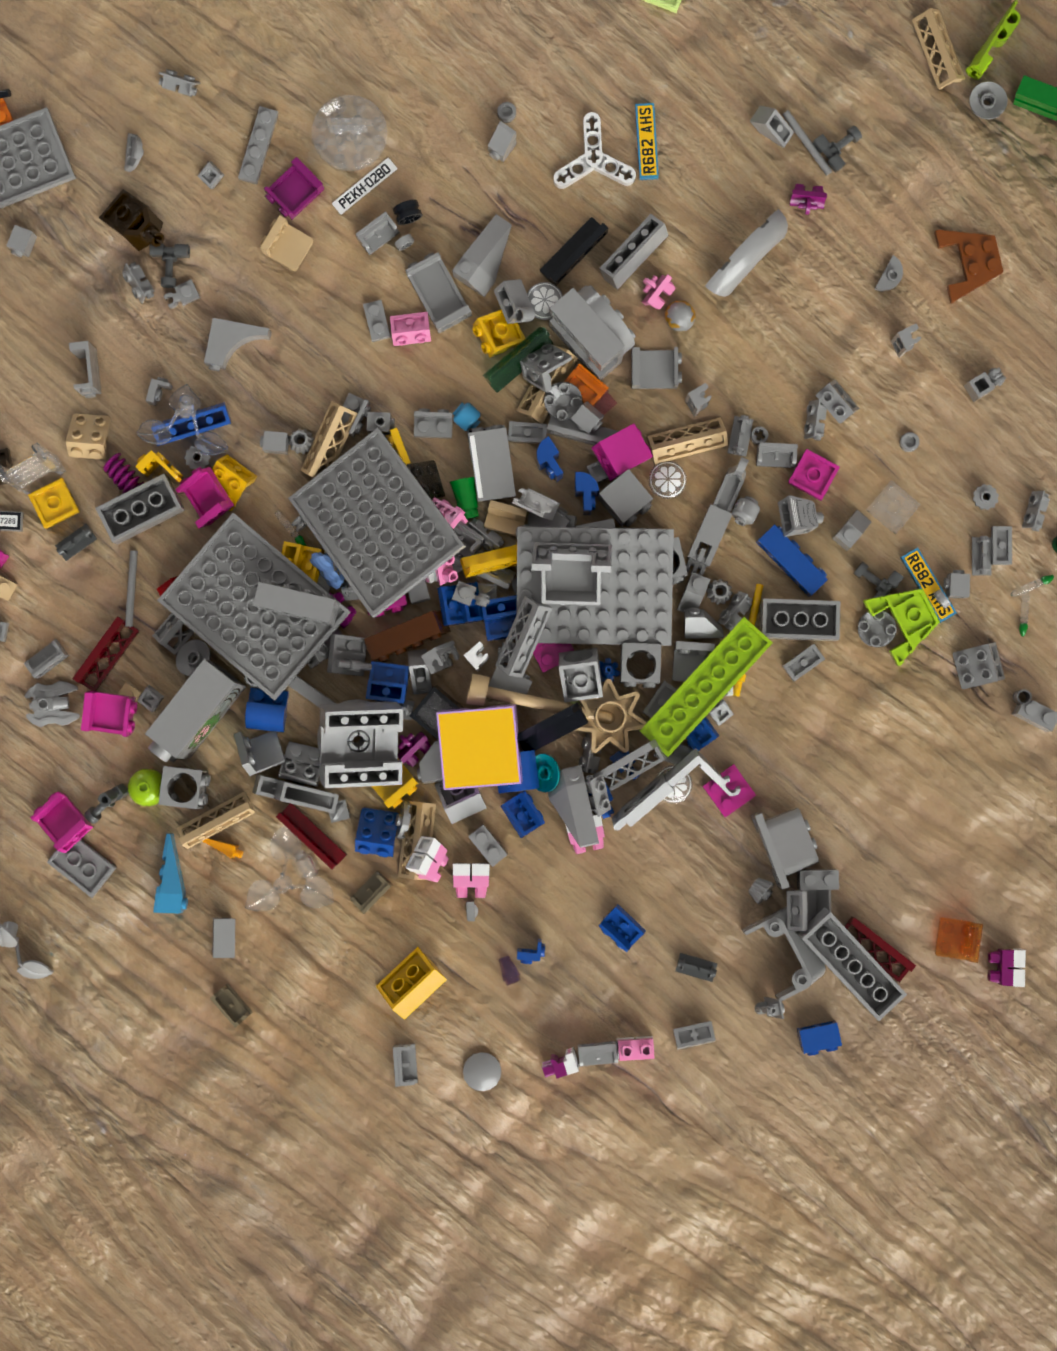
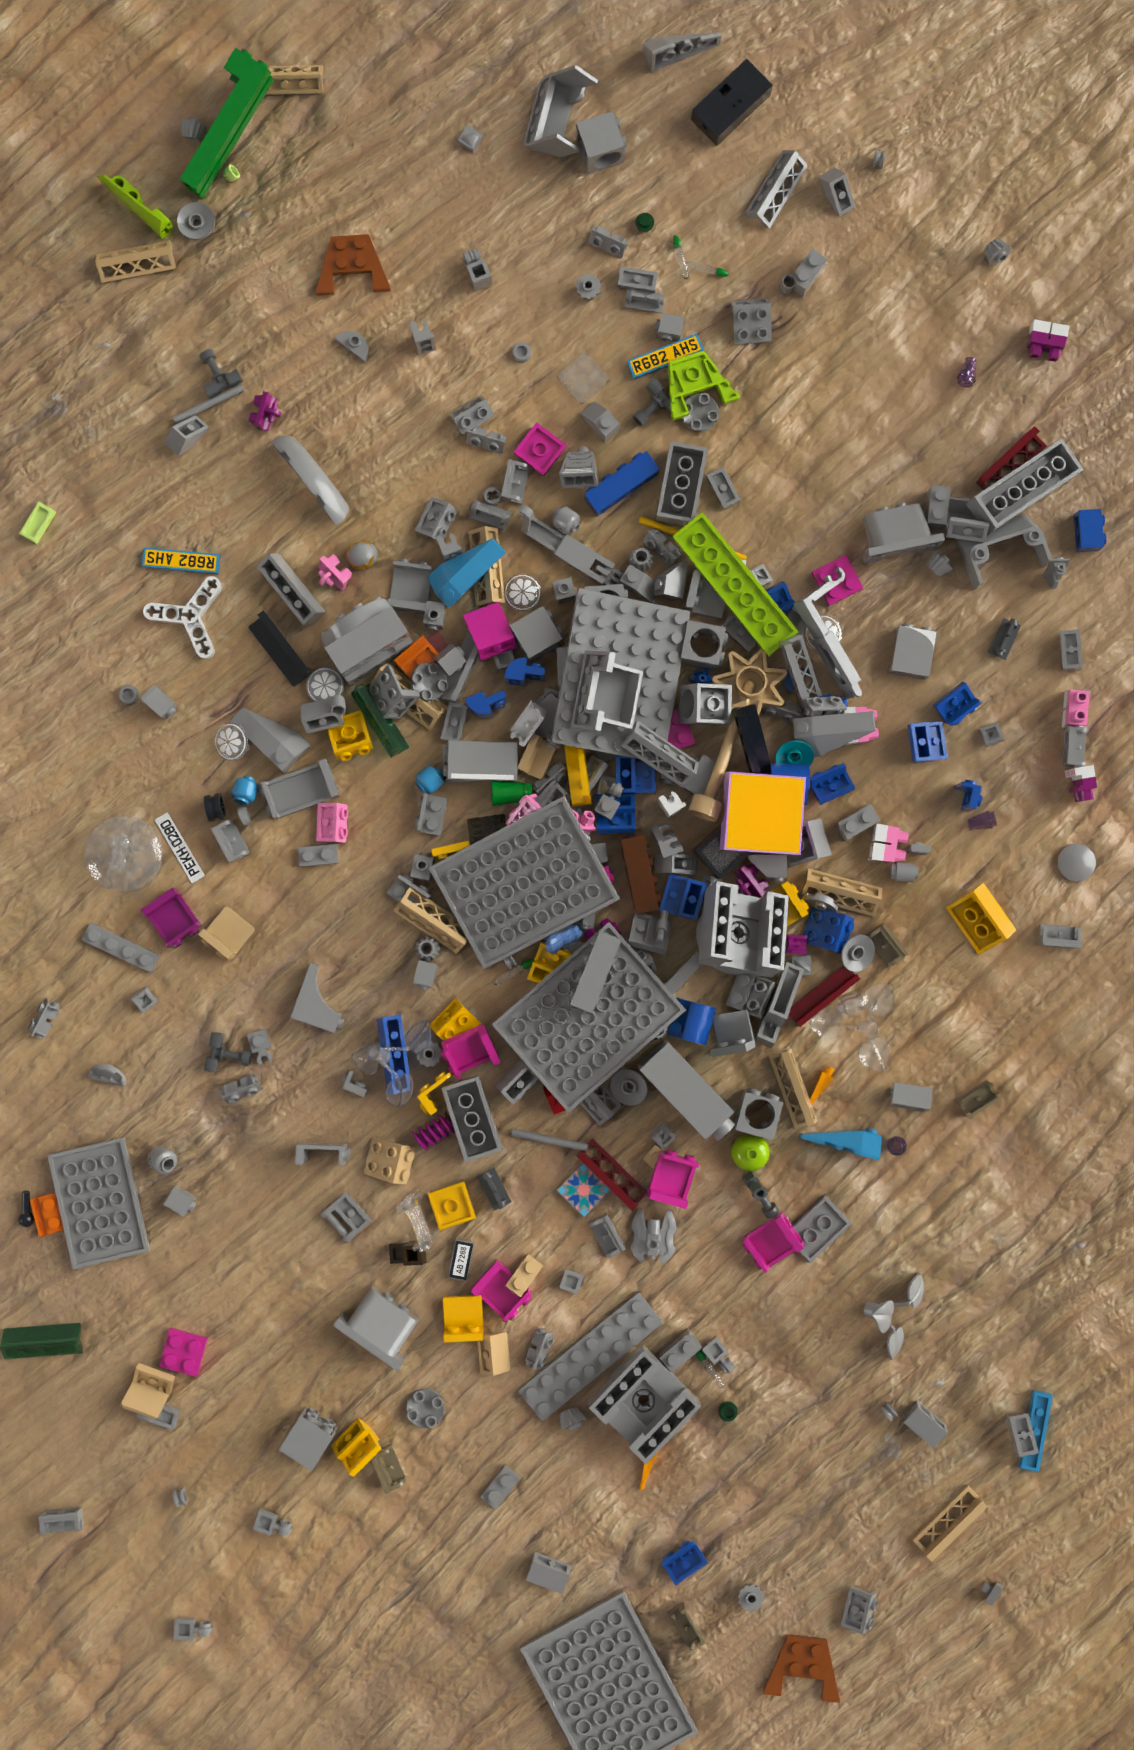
camera: 85 degrees left, 0 degrees up
(32, 407) = (350, 1212): none -> light grey plate
(57, 217) = (162, 1160): none -> light grey head
(86, 628) = (583, 1189): none -> tile
(133, 221) = (178, 1084): dark brown plate -> none
(168, 929) = (900, 1147): none -> cone
(180, 546) = (517, 1082): none -> light grey brick
(354, 869) = (863, 955): none -> light grey dish
(357, 799) = (795, 944): none -> magenta hips
(427, 859) = (863, 882): white hips -> none
(428, 239) = (244, 790): none -> dark azure head
(445, 898) = (903, 872): none -> light grey brick
(475, 218) = (231, 741): none -> dish
(579, 903) = (927, 742): none -> brick
(597, 968) = (991, 734): none -> light grey tile
(630, 396) = (434, 615): none -> light grey brick
(668, 876) = (913, 651): none -> light grey panel
(674, 413) = (458, 575): none -> dark azure wedge
(675, 519) = (564, 590): none -> light grey brick
(726, 383) = (436, 519): none -> light grey bracket
(942, 599) = (682, 344): light grey tile -> none
(959, 939) = (1014, 381): clear orange bracket -> none
(960, 891) = (967, 374): none -> cone
(1042, 127) = (231, 173): none -> yellowish green hinge

